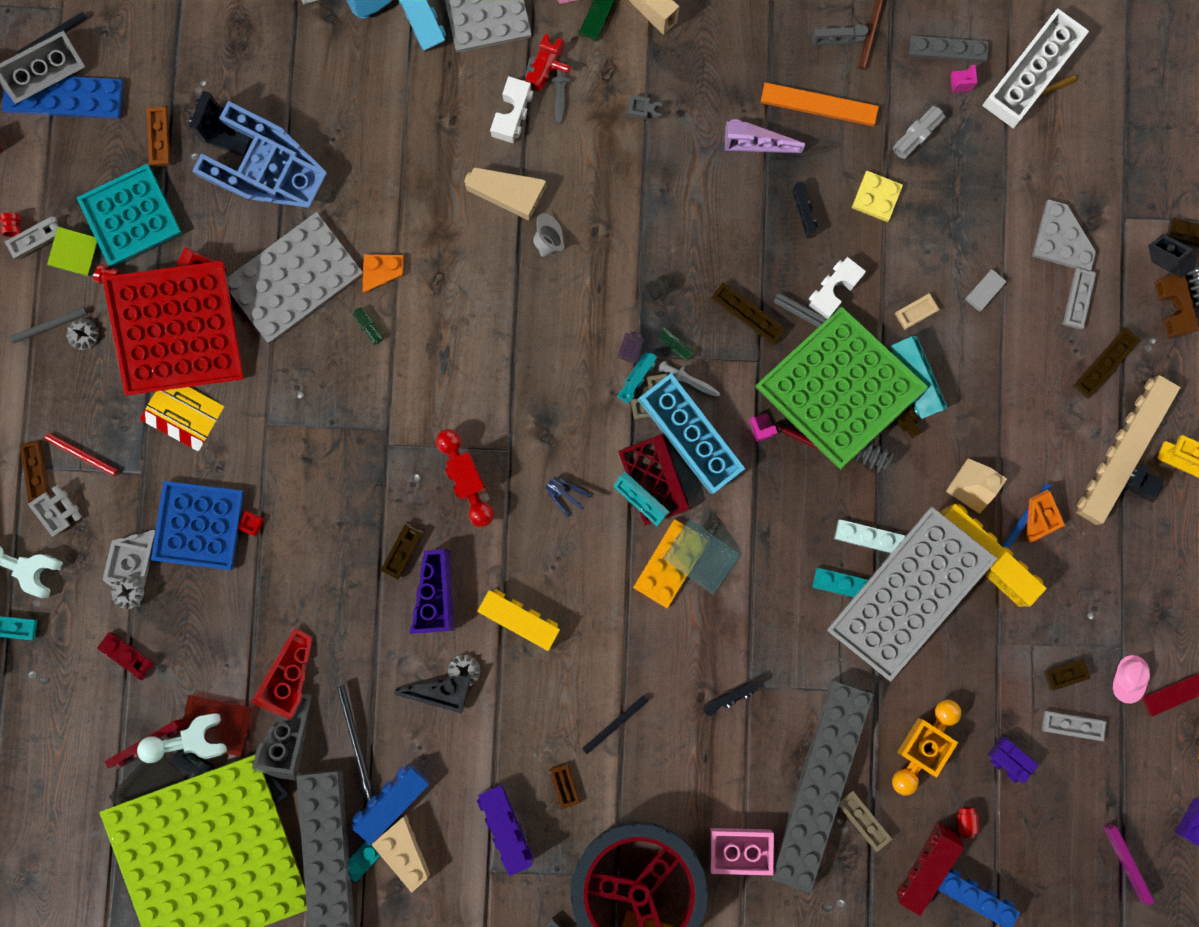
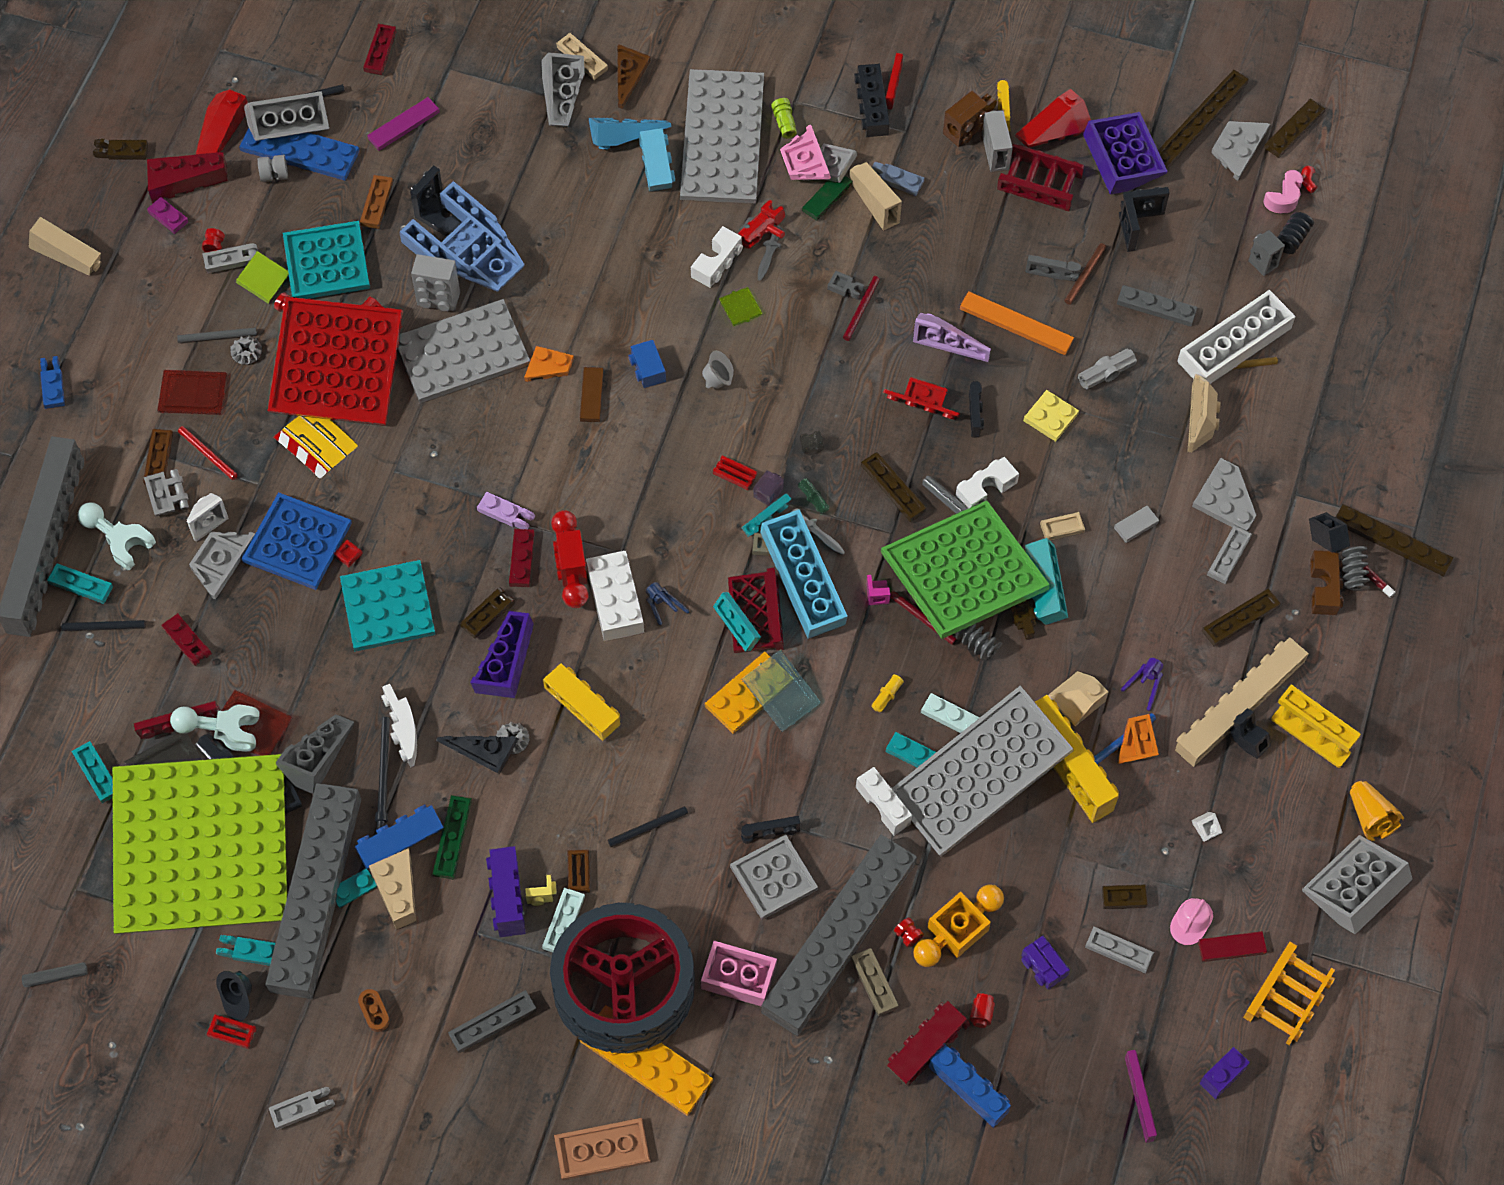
camera: 15 degrees right, 20 degrees down
(42, 662) = (105, 625): none -> black bar
(44, 127) = (272, 168): none -> light grey wheel
(44, 393) = (192, 392): none -> clear red piece
(83, 813) = (94, 771): none -> teal plate
(101, 525) = (206, 516): none -> white slope
(135, 596) = (216, 584): light grey gear -> none
(157, 40) = (403, 123): none -> magenta tile
(245, 218) = (435, 283): none -> light grey brick
(284, 681) = (331, 699): red wedge -> none
(305, 567) = (387, 605): none -> teal plate
(363, 694) = (404, 727): none -> white slope
(368, 326) = (519, 408): clear green axle -> none
(385, 438) = (504, 511): none -> lavender hinge
(417, 483) = (521, 558): none -> dark red plate
(432, 291) = (591, 394): none -> reddish brown tile
(438, 785) = (452, 837): none -> dark green tile
(477, 245) = (647, 363): none -> blue brick
(506, 190) = (691, 324): tan slope -> none
(517, 501) = (615, 595): none -> white brick
(535, 824) = (540, 895): none -> light yellow bracket
(548, 156) = (740, 306): none -> clear neon green piece
(565, 841) = (565, 914): none -> light aqua plate
(595, 331) = (737, 470): none -> red tile
(666, 127) = (861, 308): none -> dark red bar
(745, 744) = (773, 877): none -> light grey plate
(754, 209) = (925, 395): none -> red bracket
(799, 530) = (887, 693): none -> yellow axle
(826, 642) = (892, 810): none -> white arch
(882, 765) = (908, 932): none -> red wheel
(964, 80) = (1164, 335): dark pink panel -> none
(1020, 156) = (1202, 413): none -> tan wedge
(1037, 440) = (1150, 670): none -> dark purple plant
(1123, 581) = (1207, 826): none -> white slope

